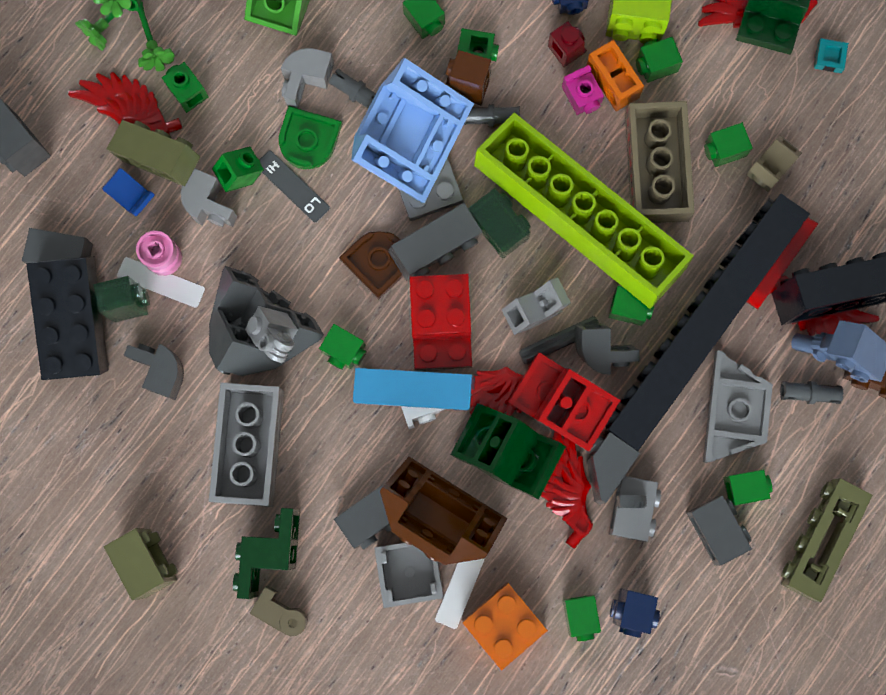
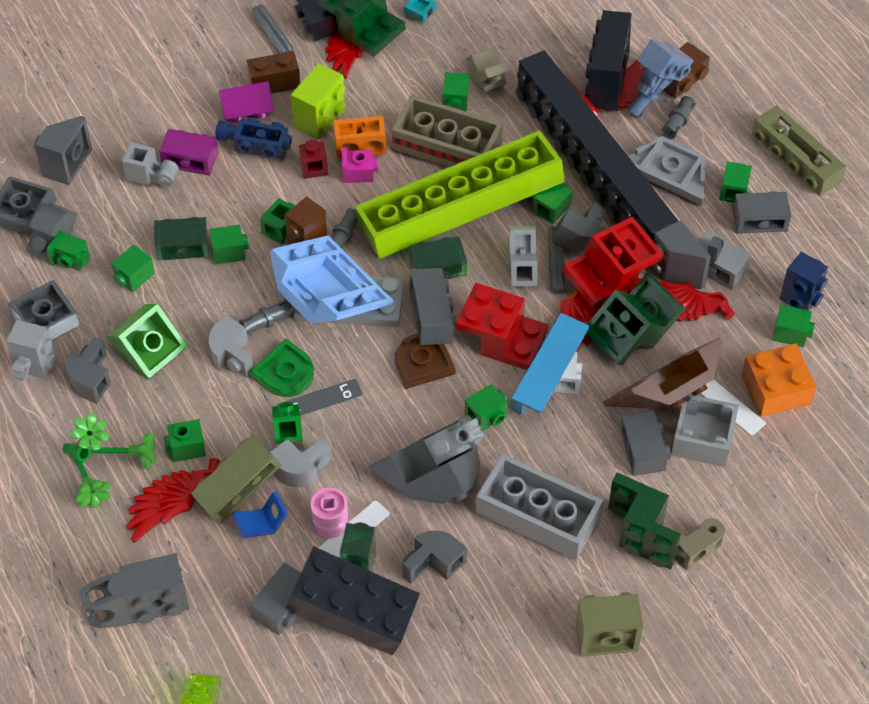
camera: 70 degrees left, 25 degrees down
(658, 59) = (360, 103): green brick -> none

